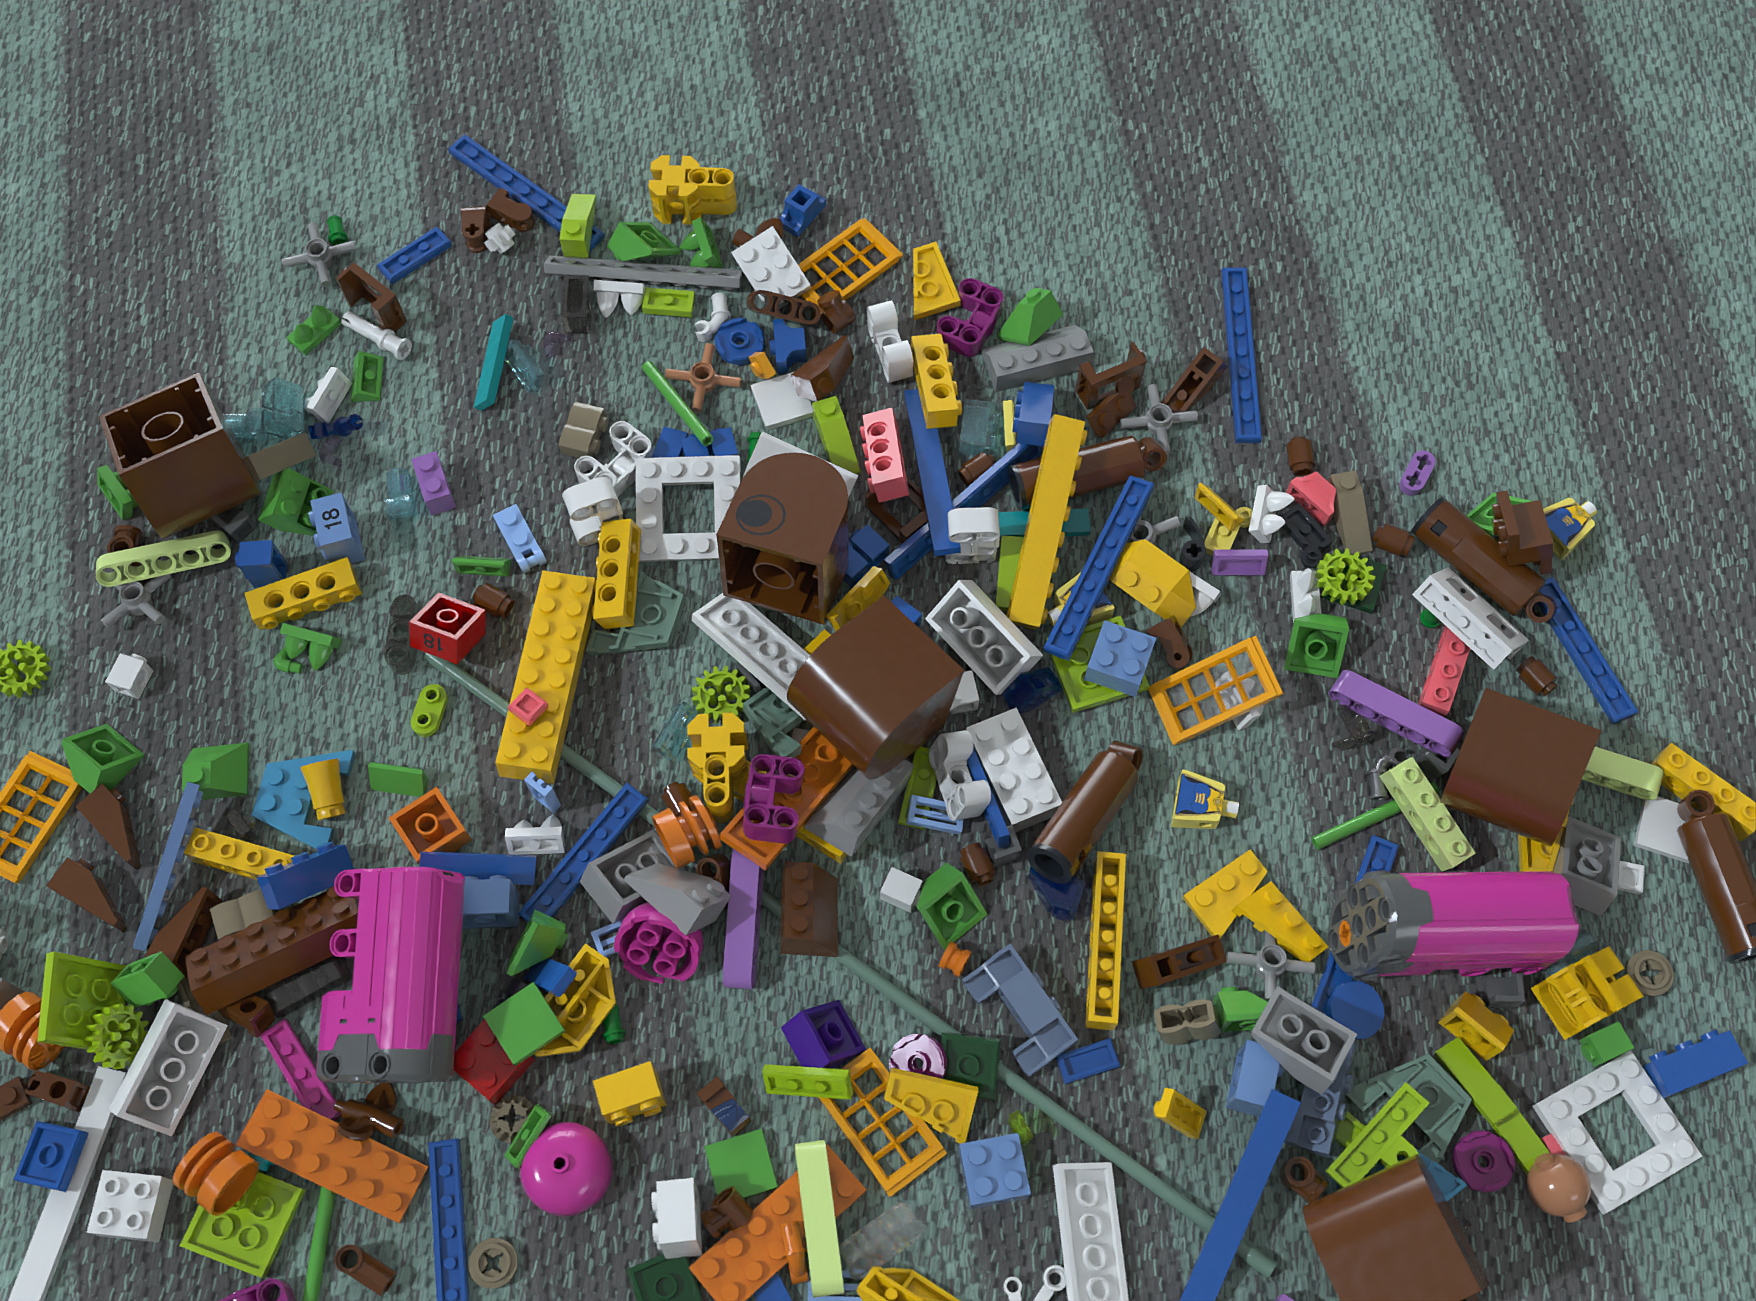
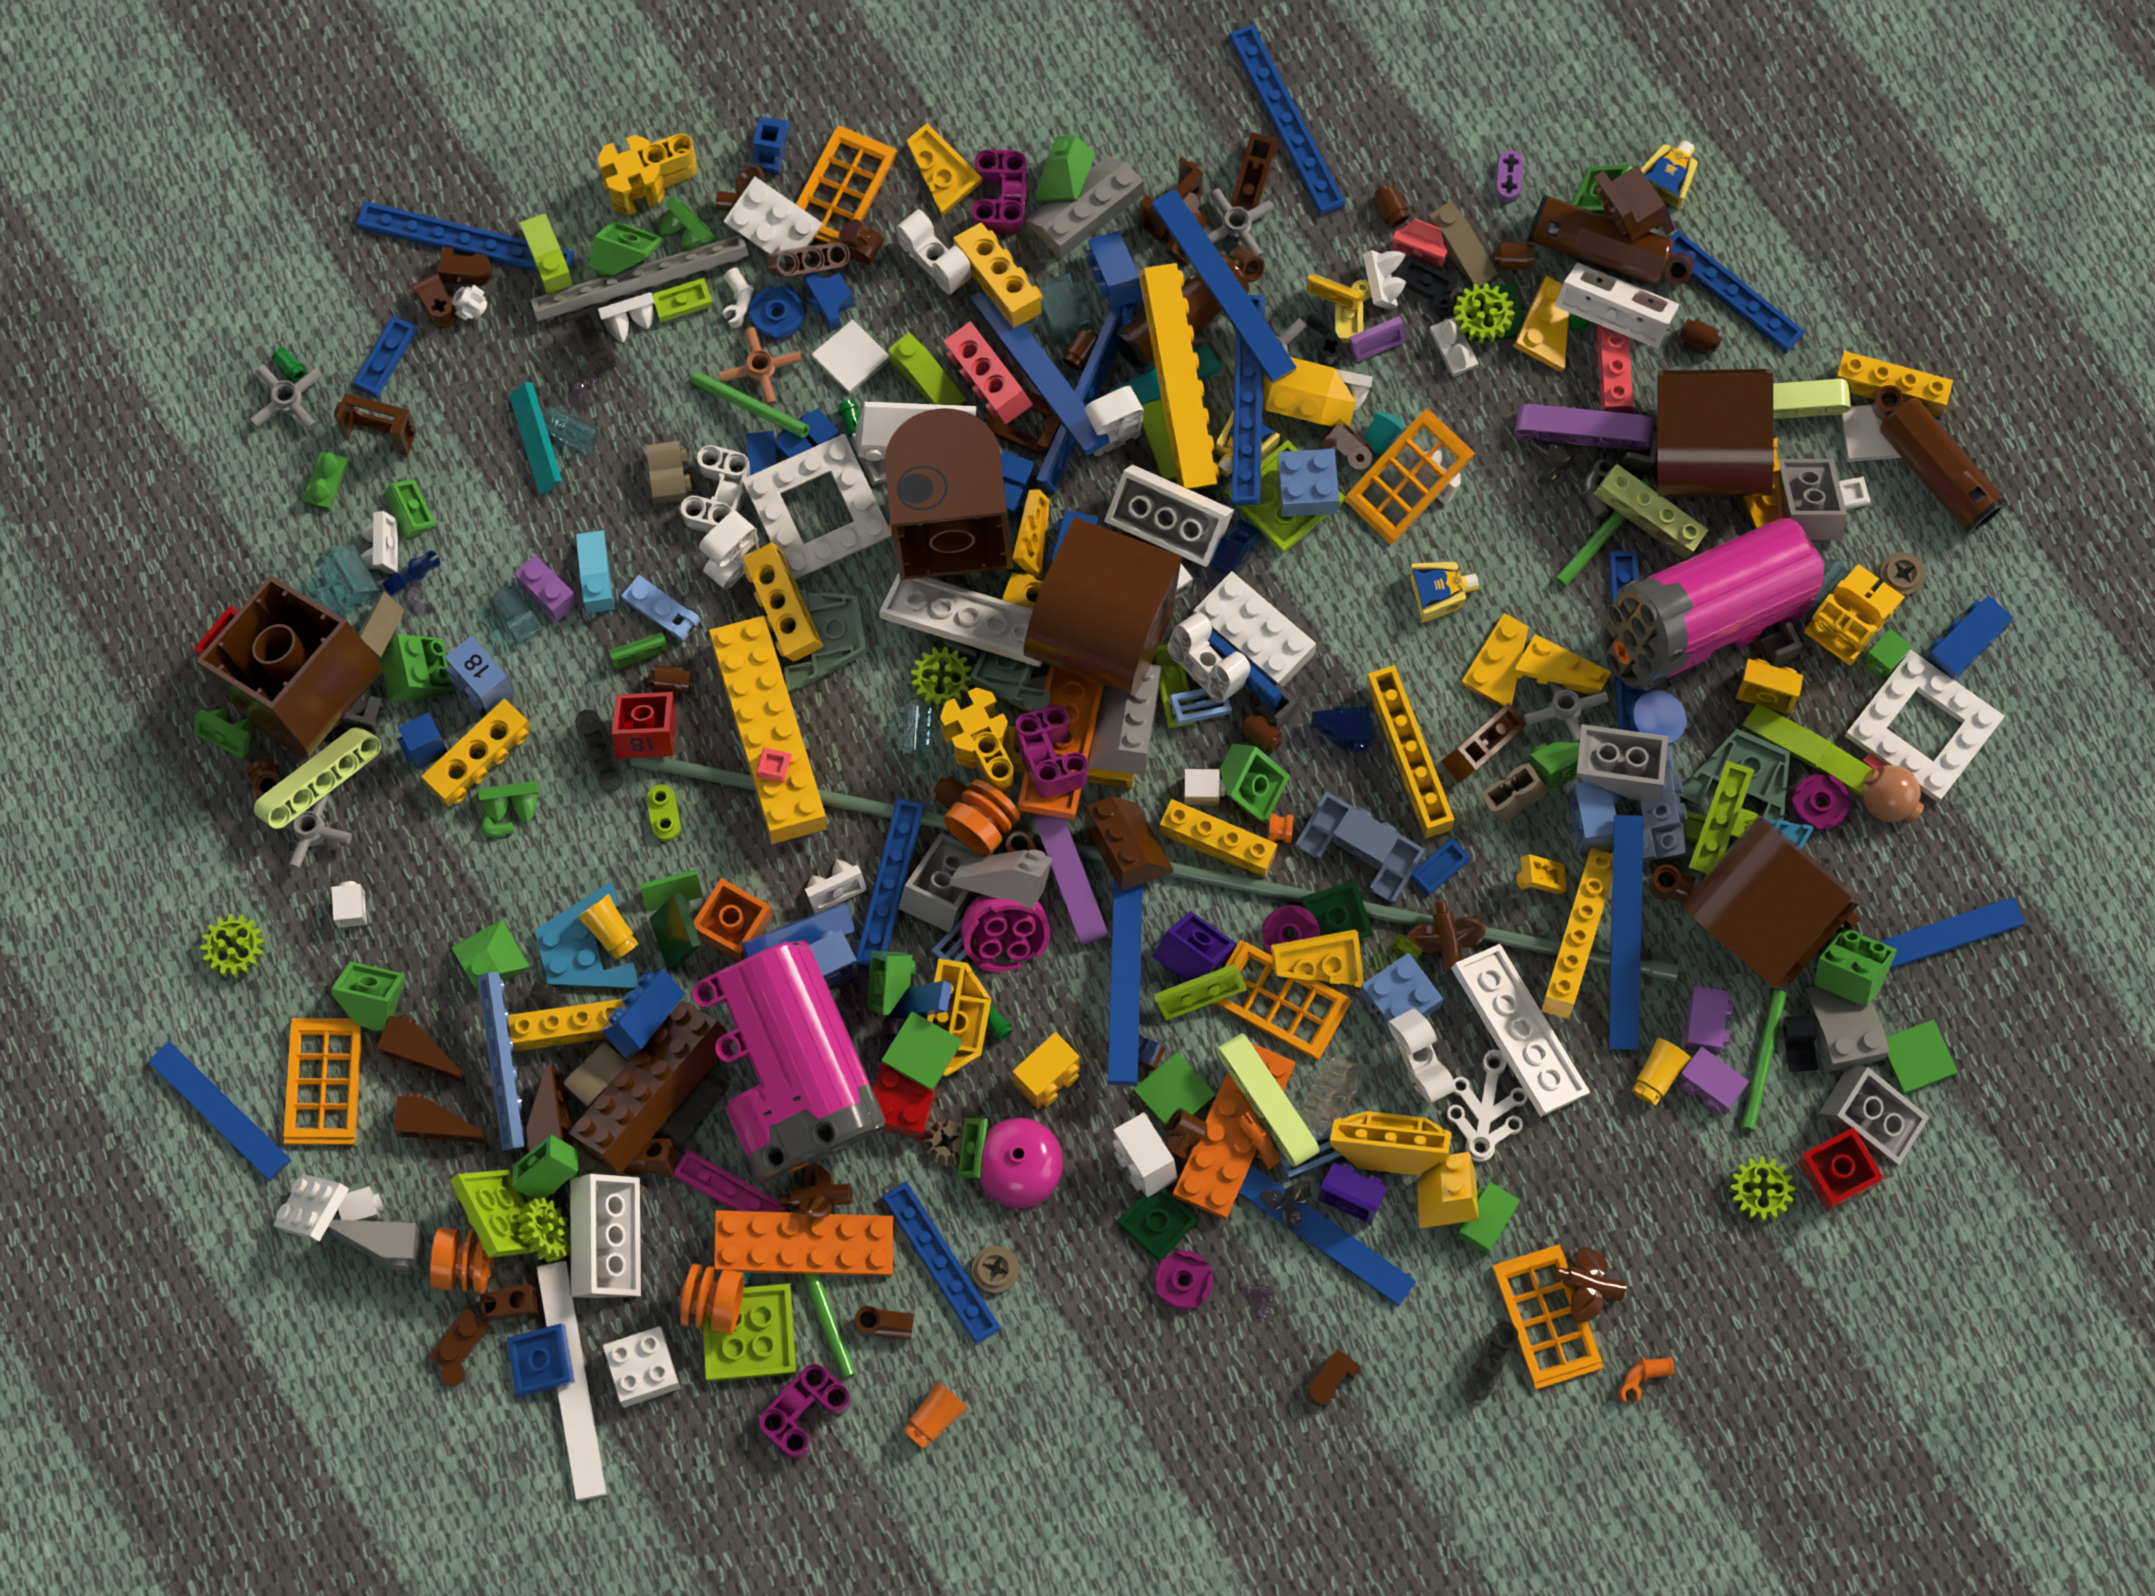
camera: 25 degrees left, 5 degrees up
(377, 816) = (675, 931): none -> dark green tile
(385, 339) = (408, 460): white pin -> none
(480, 488) = (595, 572): none -> medium azure slope
(542, 793) = (812, 836): light blue tile -> none
(739, 1047) = (1125, 986): none -> blue tile
(761, 365) = (814, 329): light orange plate -> none
(824, 371) = (882, 312): reddish brown slope -> none
(893, 944) = (1218, 838): none -> yellow brick
(983, 1249) = (1416, 1034): none -> white beam
(1009, 413) = (1094, 291): light yellow tile -> none
(1063, 1131) = (1447, 935): none -> reddish brown plant
(1086, 812) = (1341, 642): reddish brown piece -> none
(1120, 462) = (1223, 286): none -> blue tile
(1189, 1191) = (1579, 935): none -> yellow brick
(1209, 642) = (1383, 431): none -> teal tile
(1317, 645) = (1485, 390): bright green slope -> none
(1395, 613) = (1545, 327): none -> yellow wing

